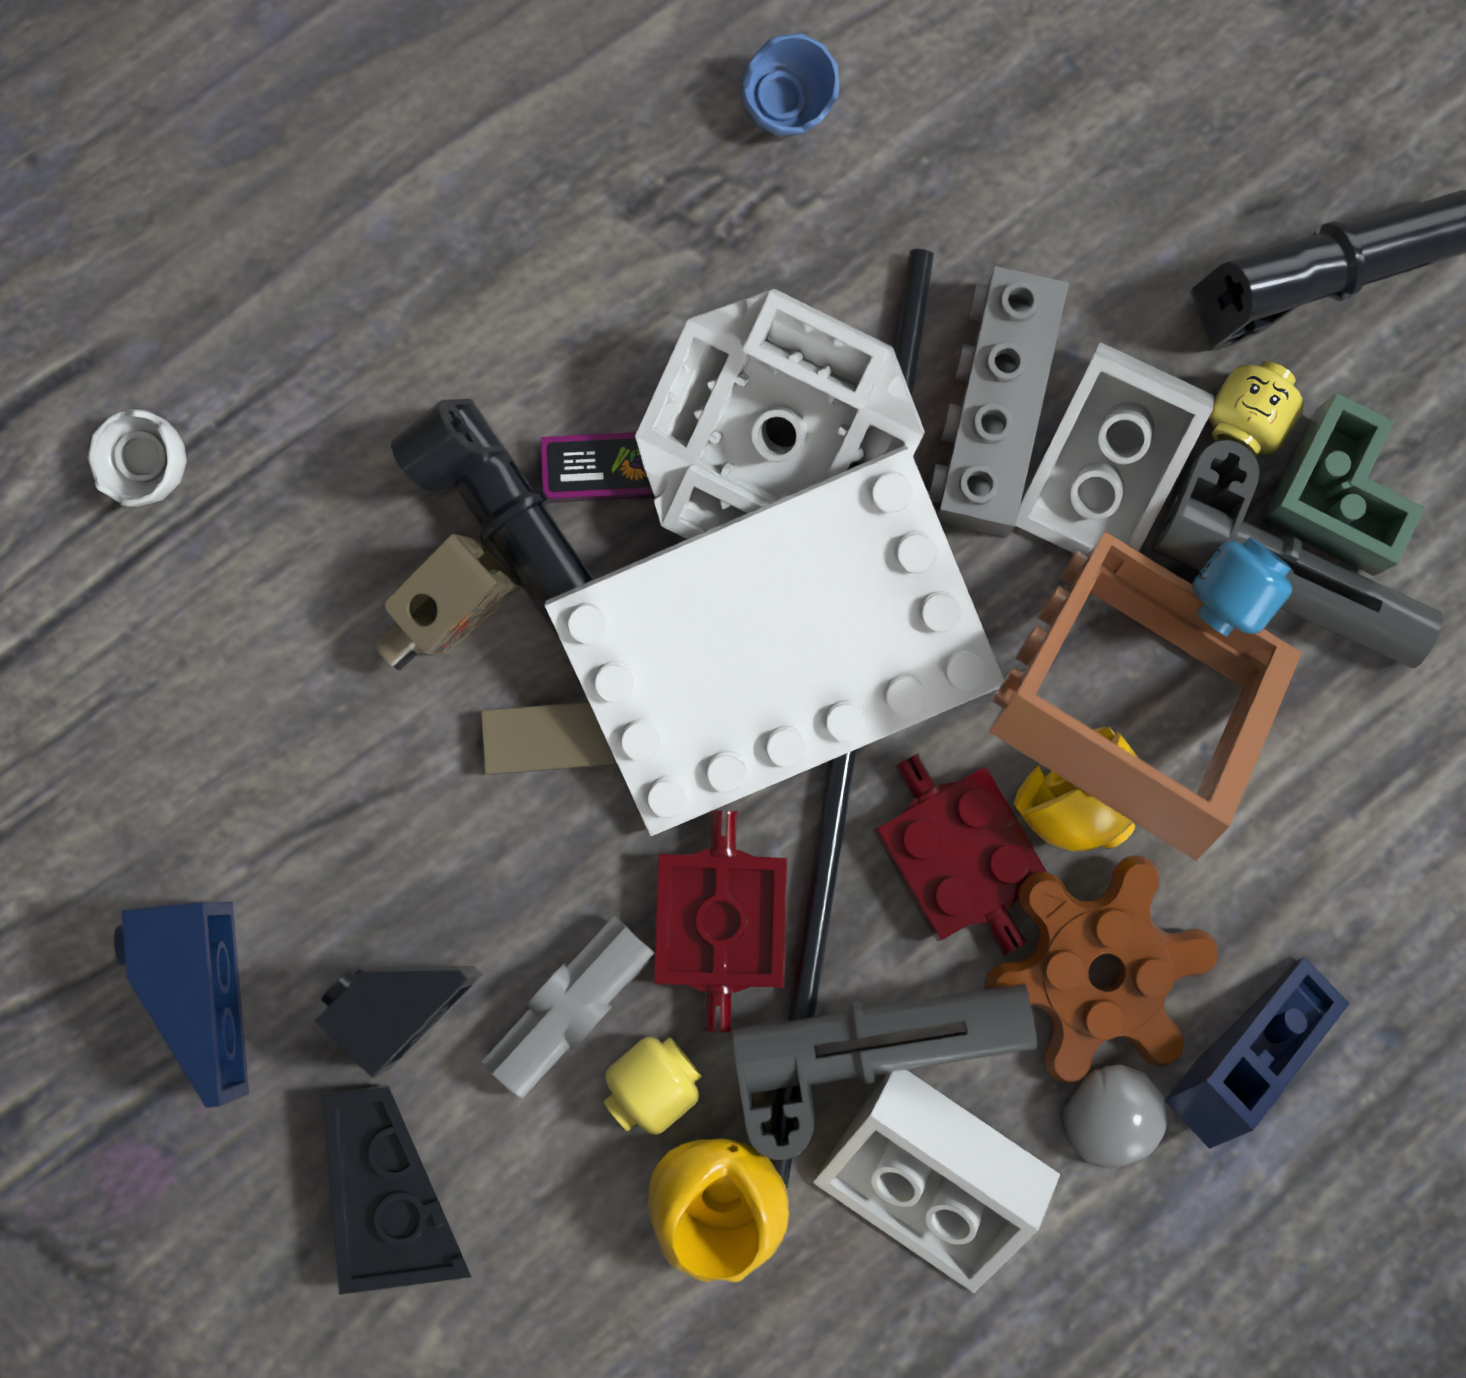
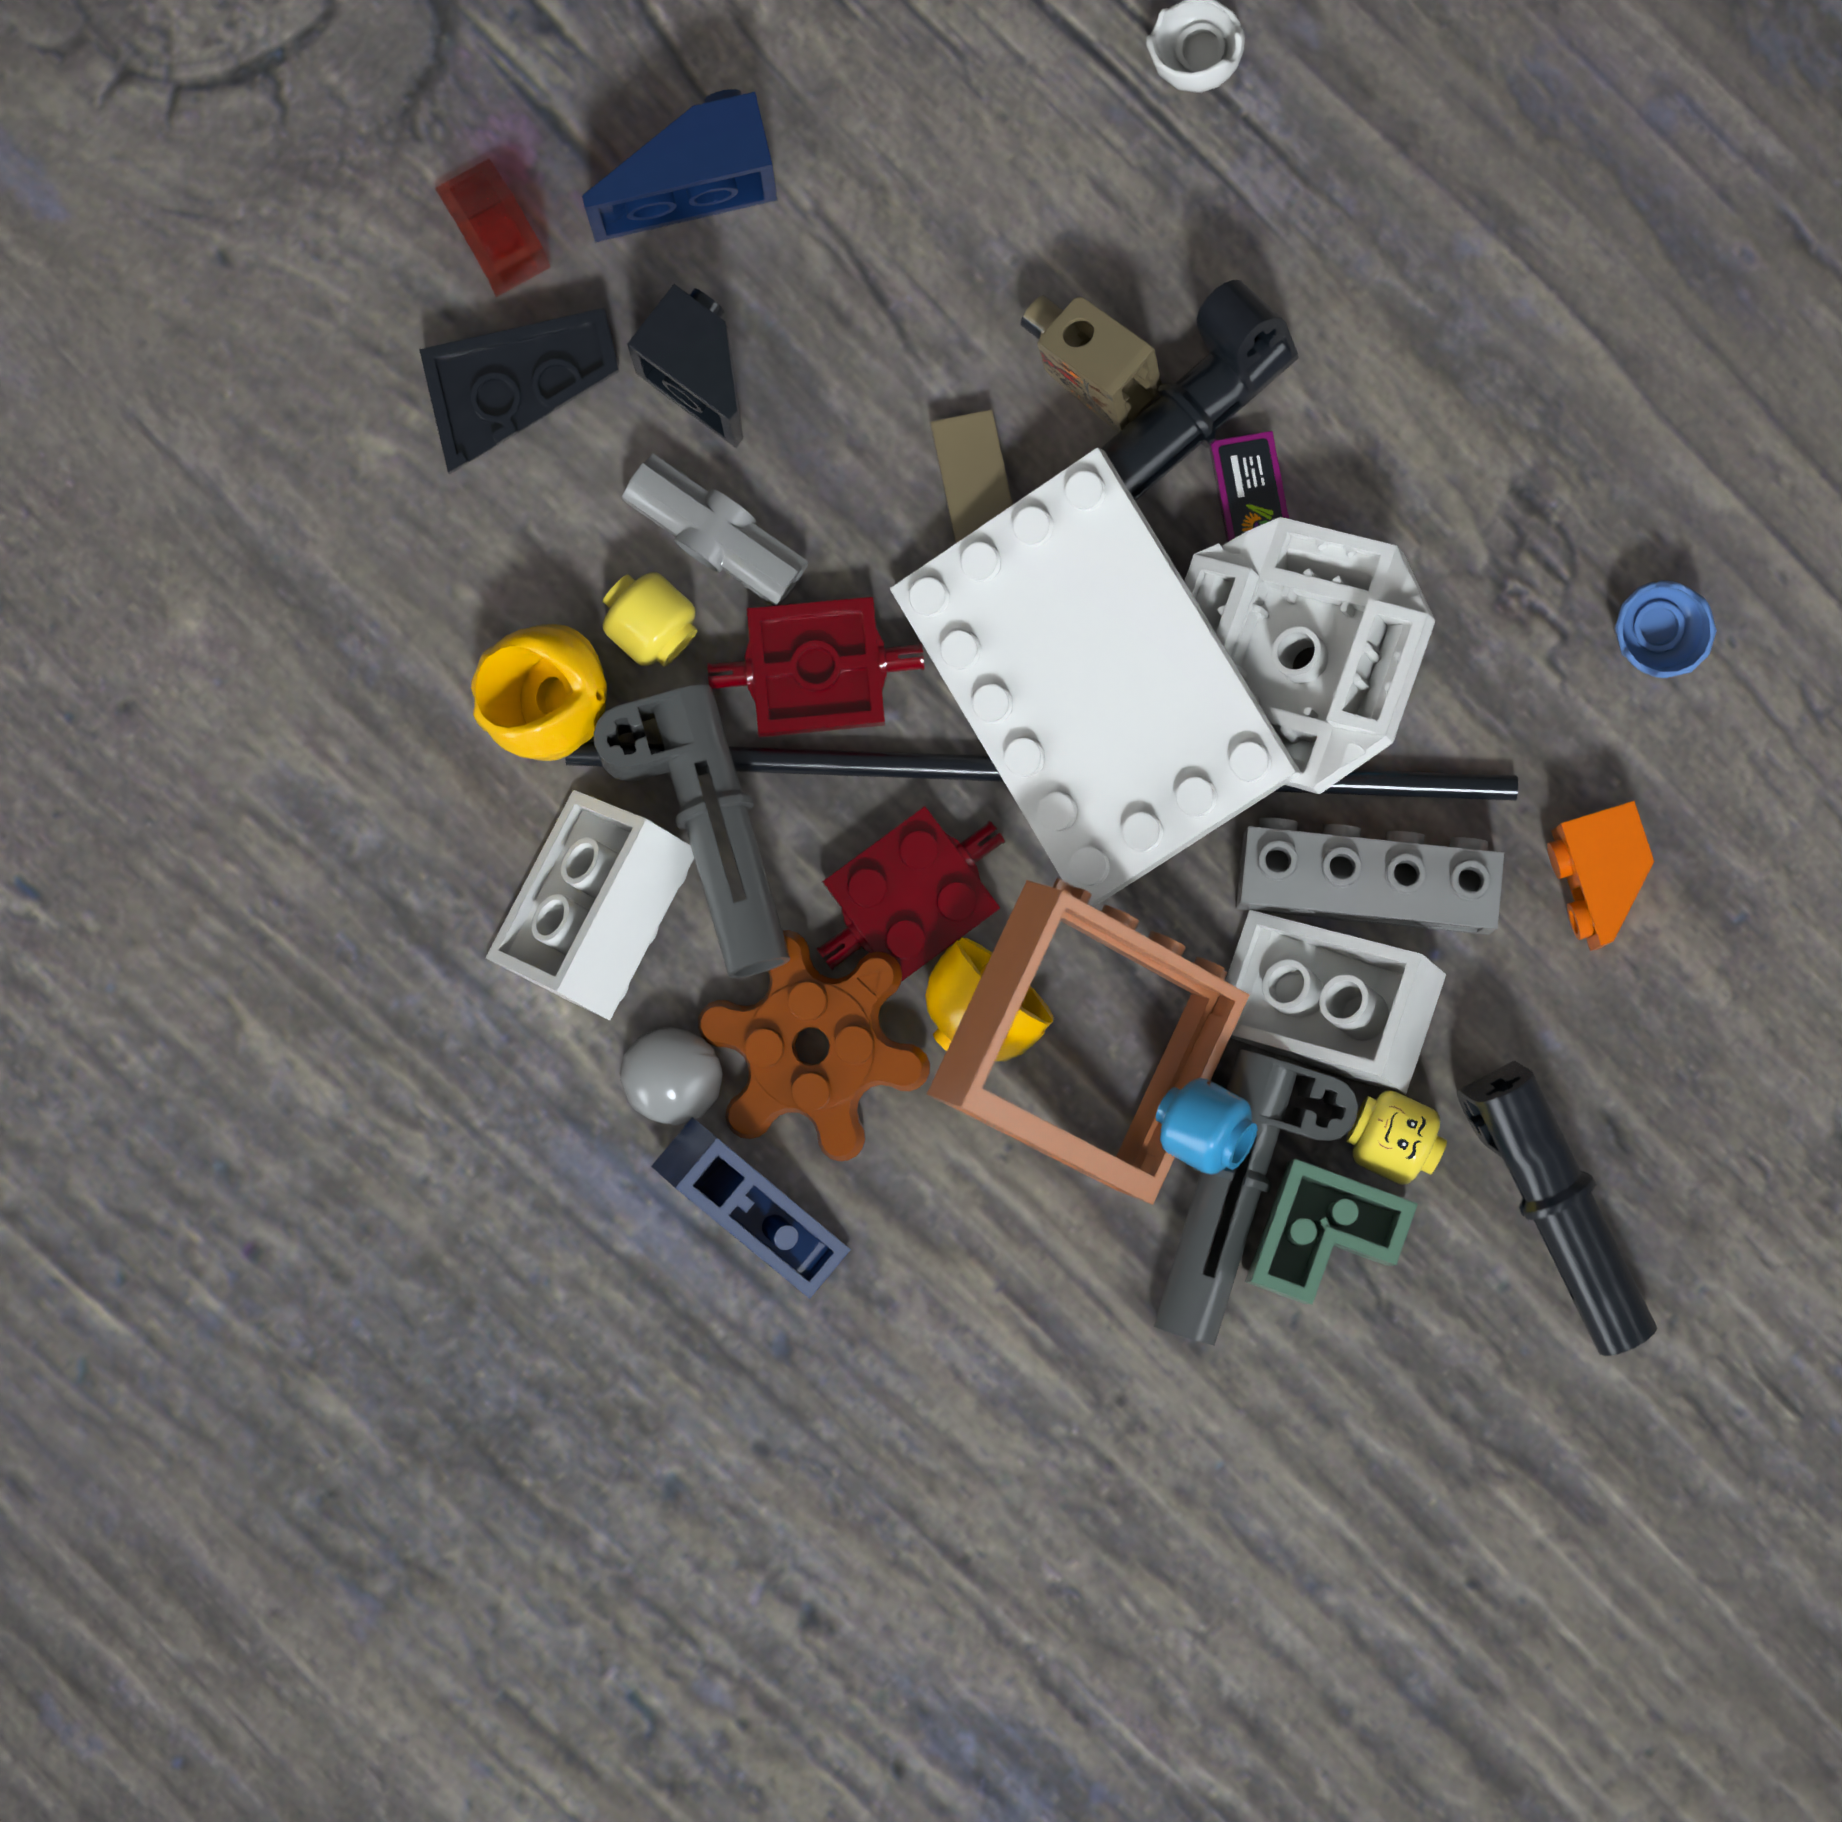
camera: 90 degrees right, 0 degrees up
(219, 1201) = (493, 227): none -> clear red slope
(1016, 176) = (1605, 868): none -> orange slope

